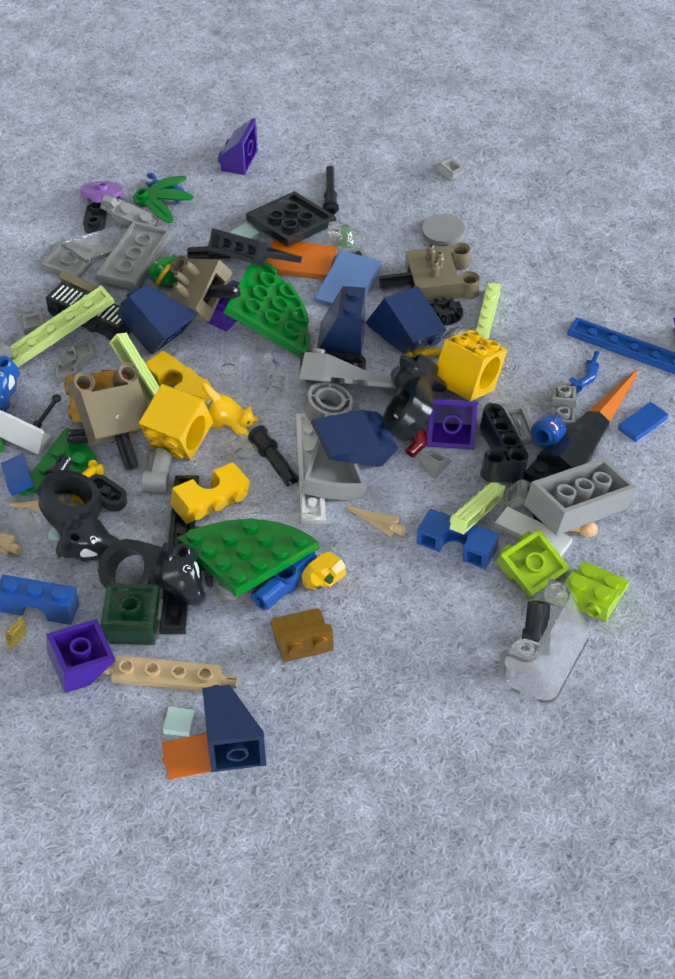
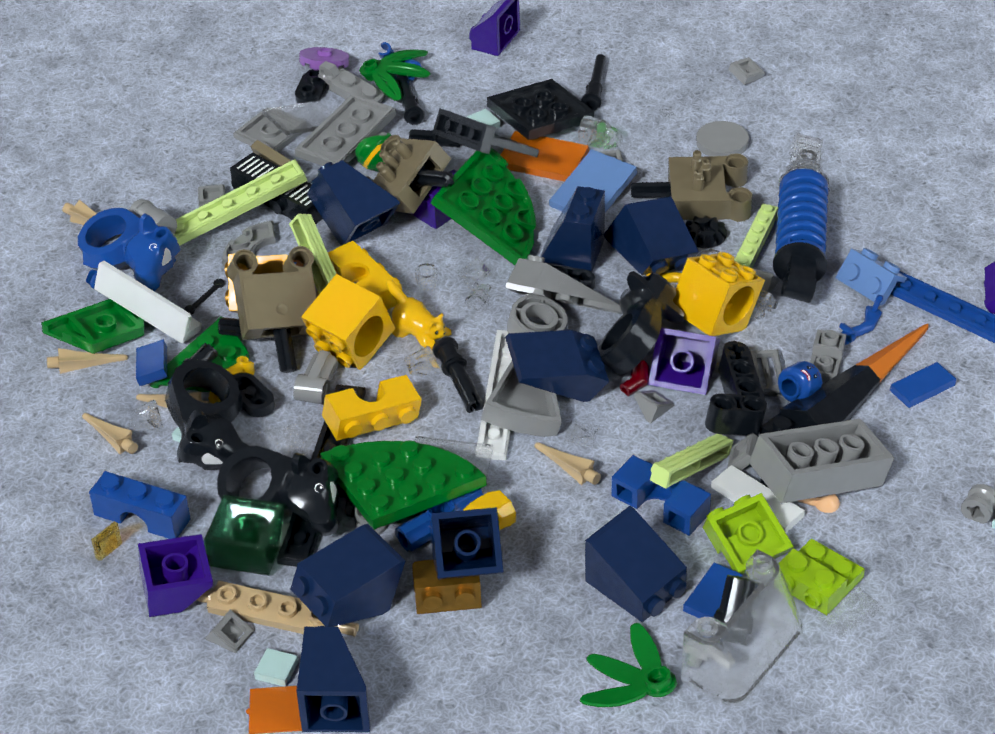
camera: 10 degrees right, 5 degrees down
(133, 696) = (229, 630): none -> light grey slope
(186, 232) = (413, 113): none -> black pin
(226, 640) = (349, 578): none -> dark blue slope
(315, 601) = (466, 543): none -> dark blue slope
(450, 601) = (633, 565): none -> dark blue slope
(478, 693) = (651, 680): none -> green plant
(513, 615) = (708, 593): none -> blue tile
(523, 293) = (802, 220): none -> piece
(583, 334) = (869, 275): none -> medium blue bracket

